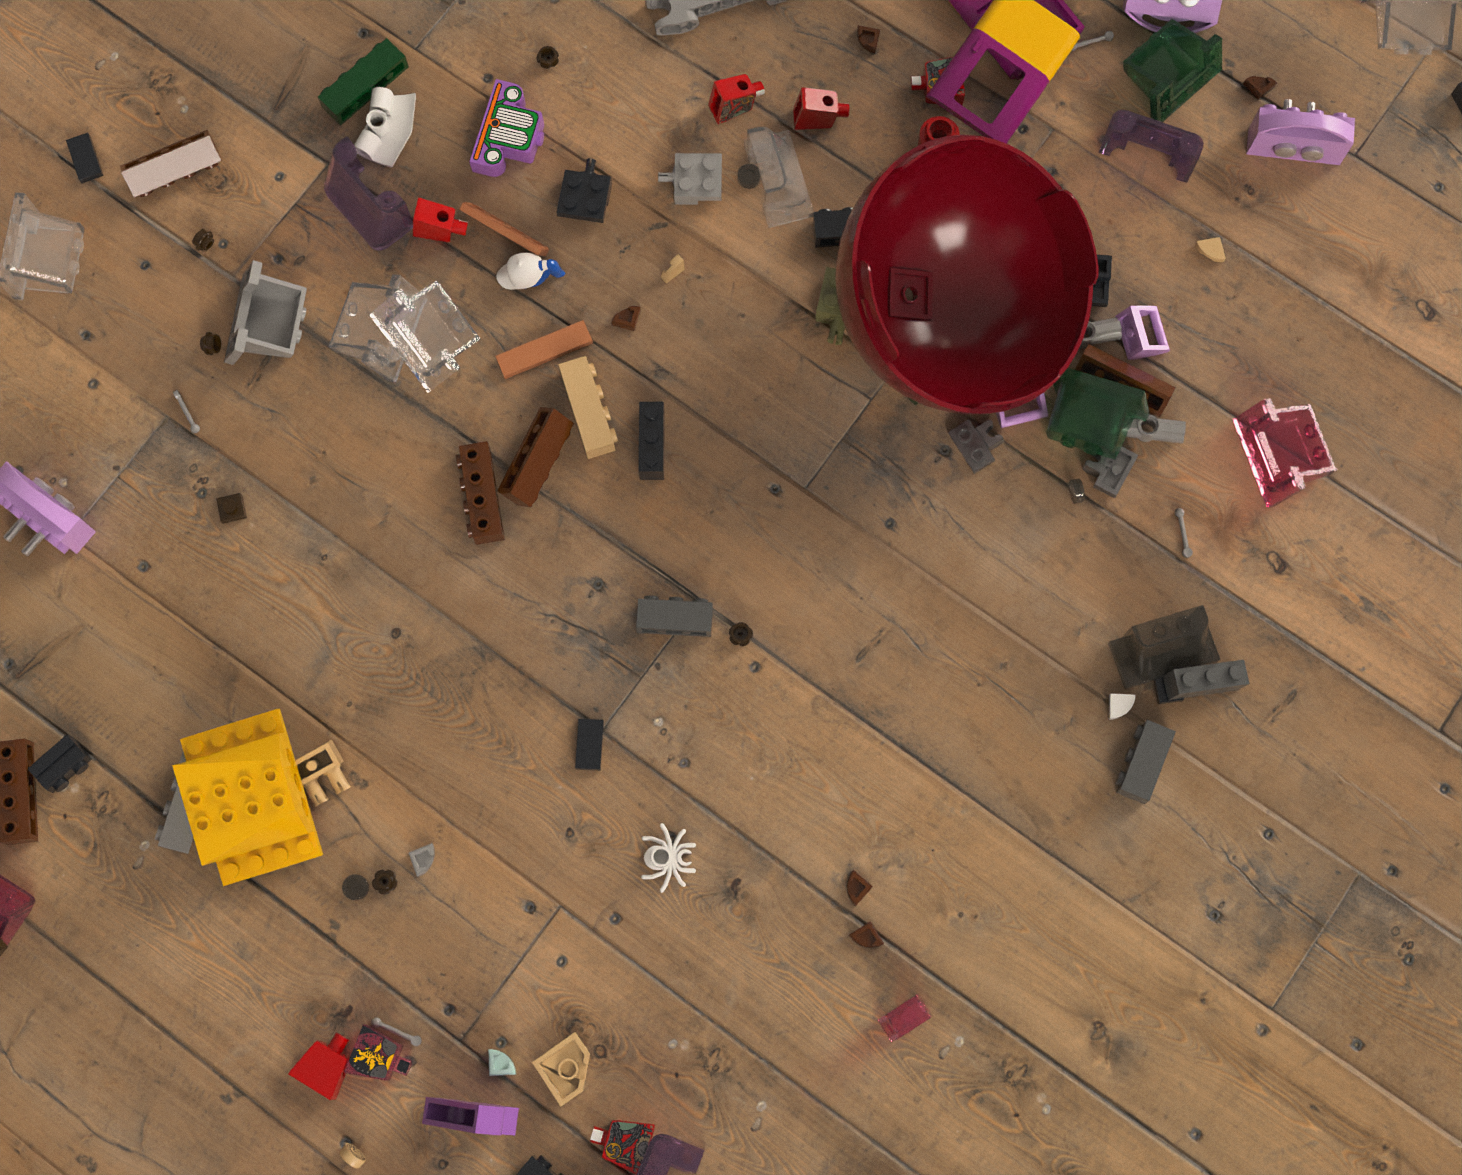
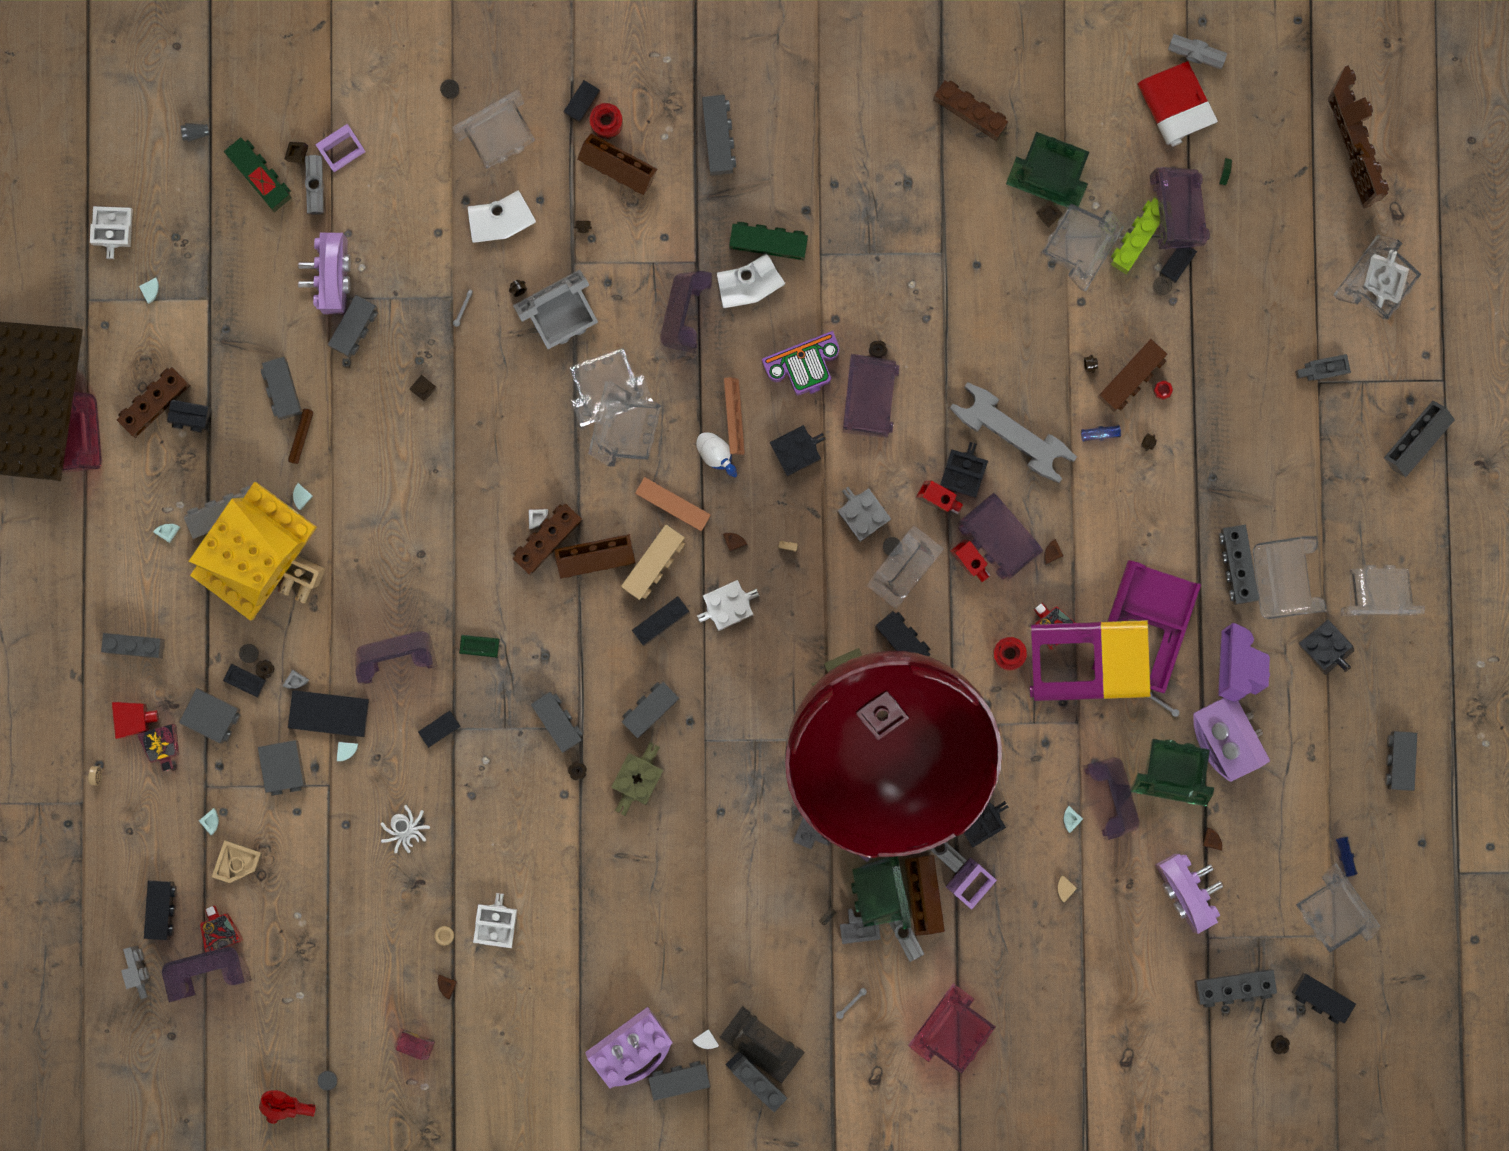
camera: 55 degrees right, 10 degrees up
(112, 530) = (353, 326): none -> dark grey brick
(112, 648) = (281, 388): none -> dark grey brick
(121, 144) = (606, 131): none -> red piece
(140, 298) = (490, 227): none -> white panel
(160, 879) = (167, 531): none -> light aqua tile
(177, 665) = (300, 436): none -> reddish brown axle
(223, 54) = (717, 135): none -> dark grey brick
(237, 709) = (301, 496): none -> light aqua tile
(247, 1006) = (132, 645): none -> dark grey brick
(380, 913) = (244, 680): none -> black tile
(388, 977) = (210, 716): none -> dark grey brick
(415, 1040) = (187, 760): light grey hinge -> none
(436, 221) = (702, 362): red torso -> none
(451, 490) = (536, 517): none -> white tile
(458, 758) = (417, 644): none -> windscreen
(470, 1116) = (164, 829): medium lavender brick -> none
(483, 849) = (328, 713): none -> black tile
(502, 940) = (282, 767): none -> dark grey brick
(536, 641) = (479, 646): none -> dark green tile
(537, 859) = (346, 750): none -> light aqua tile
(586, 92) = (869, 396): none -> windscreen
(686, 368) = (728, 605): none -> white plate
(728, 56) = (964, 472): none -> black plate
(732, 515) = (649, 709): none -> dark grey brick
(787, 590) = (625, 783): none -> olive brick
(811, 899) = (444, 935): none -> tan tile
(817, 65) = (1000, 537): none -> clear purple windscreen
(839, 834) = (495, 924): none -> white plate
(857, 887) = (471, 958): reddish brown tile -> none
(877, 1144) = (327, 1080): none -> dark grey tile
(1076, 786) = (630, 1050): none -> lavender piece
(1145, 197) = (1071, 819): none -> light aqua tile
(1425, 159) = (1233, 987): none -> dark grey brick

